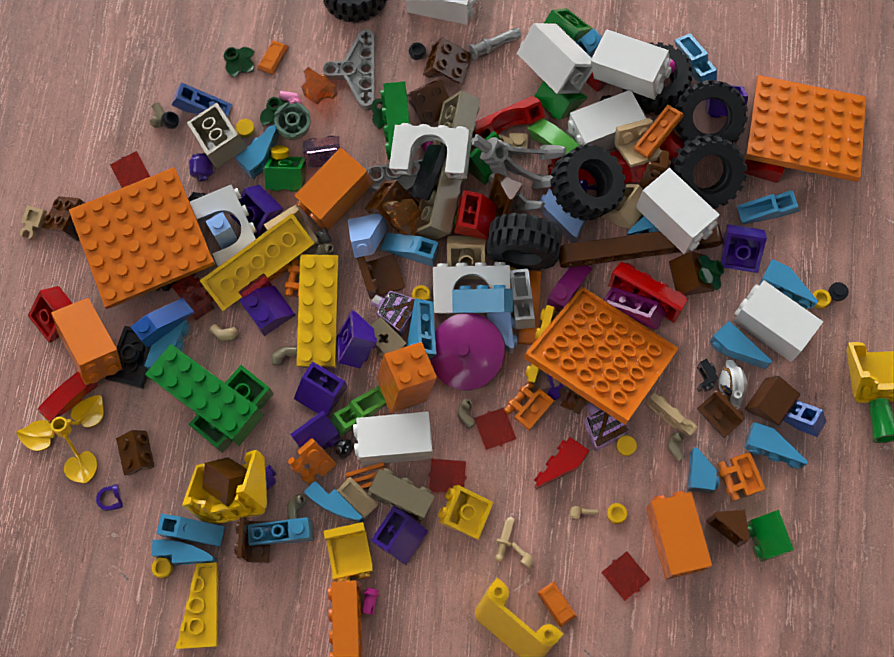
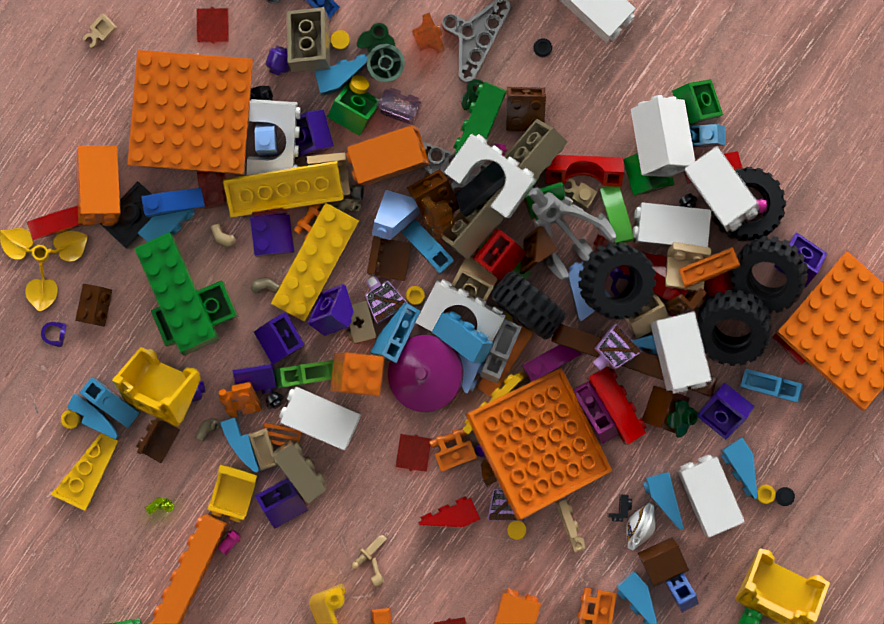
camera: 25 degrees right, 15 degrees up
(48, 301) = (78, 130): red slope -> none
(60, 218) = (129, 39): reddish brown bracket -> none
(222, 479) = (158, 377): reddish brown slope -> none
(281, 532) = (184, 445): dark azure slope -> none
(284, 601) = (160, 503): none -> clear neon green arm
(290, 97) = (399, 33): bright pink arm -> none
(446, 474) = (350, 471): clear red piece -> none
(447, 60) = (564, 75): reddish brown bracket -> none
(464, 413) = (393, 426): dark tan arm -> none
(465, 511) = (347, 511): yellow plate -> none
(487, 45) = (611, 79): light grey pin -> none
(576, 511) = (440, 562): tan hand -> none
(616, 513) = (474, 582): yellow tile -> none
(620, 238) = (615, 349): none -> torso
(674, 446) = (557, 551): dark tan arm -> none
(698, 58) = (799, 202): dark azure slope -> none
(701, 473) = (564, 589): dark azure slope -> none
(721, 413) = (612, 547): reddish brown bracket -> none

